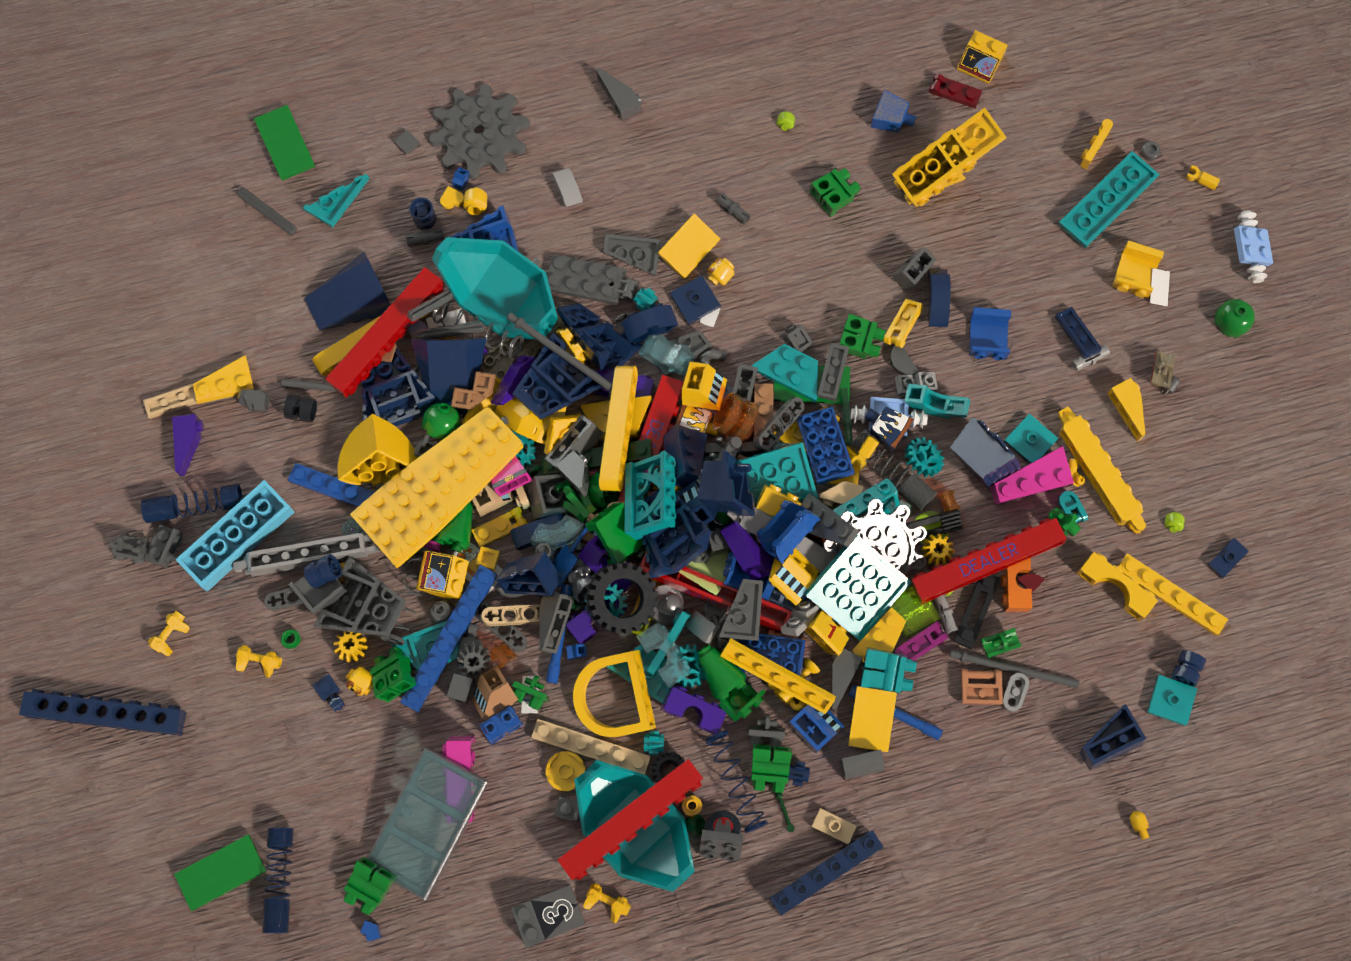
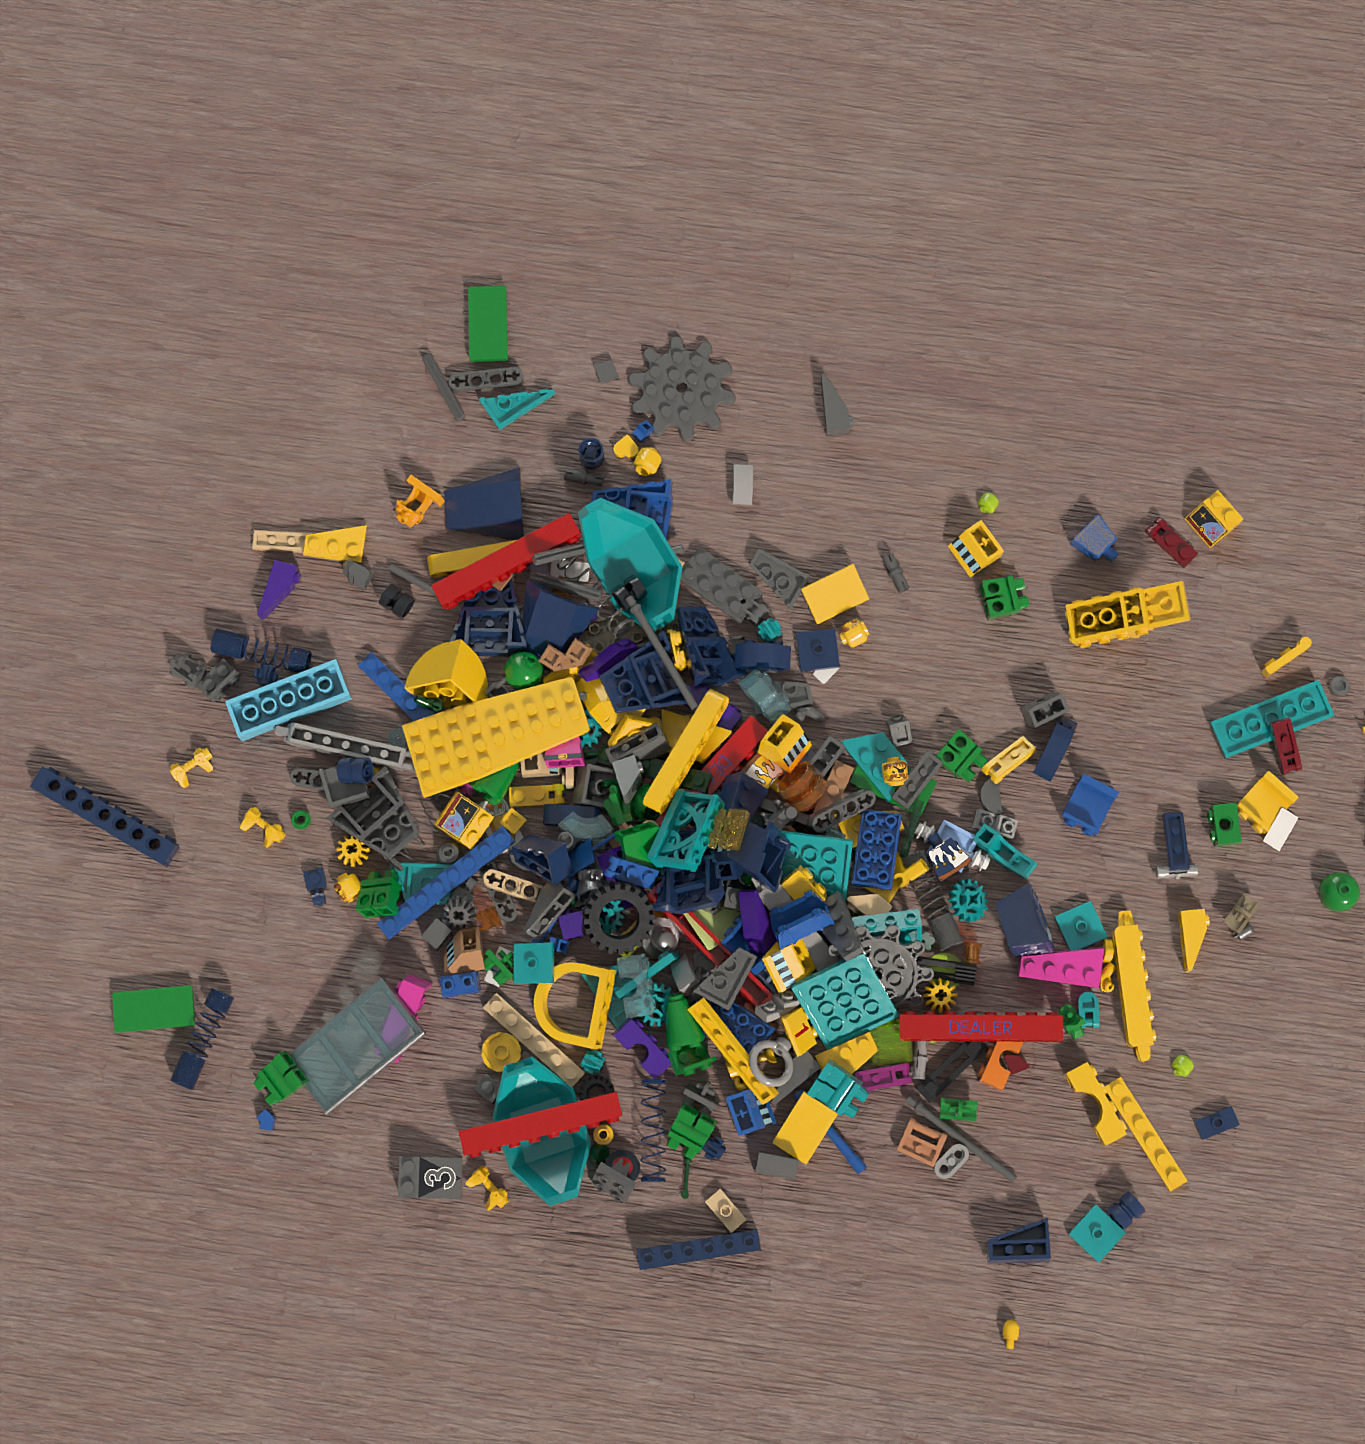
camera: 25 degrees right, 5 degrees up
(204, 521) = (265, 675): none -> dark blue gear
(287, 308) = (420, 493): none -> light orange tile
(301, 188) = (485, 376): none -> dark grey beam
(367, 485) = (432, 704): none -> dark green arm
(500, 316) = (631, 586): none -> black wheel
(561, 676) = (534, 963): none -> teal plate
(616, 553) = (631, 872): none -> blue plate
(694, 474) = (733, 830): none -> clear yellow plate
(793, 159) = (975, 549): none -> yellow slope
(810, 370) = (894, 771): none -> head
(819, 655) = (781, 1048): none -> light grey piece
(1067, 448) = (1108, 951): none -> yellow tile
(1113, 292) = (1229, 814): none -> green brick
(1132, 214) = (1286, 745): none -> dark red plate

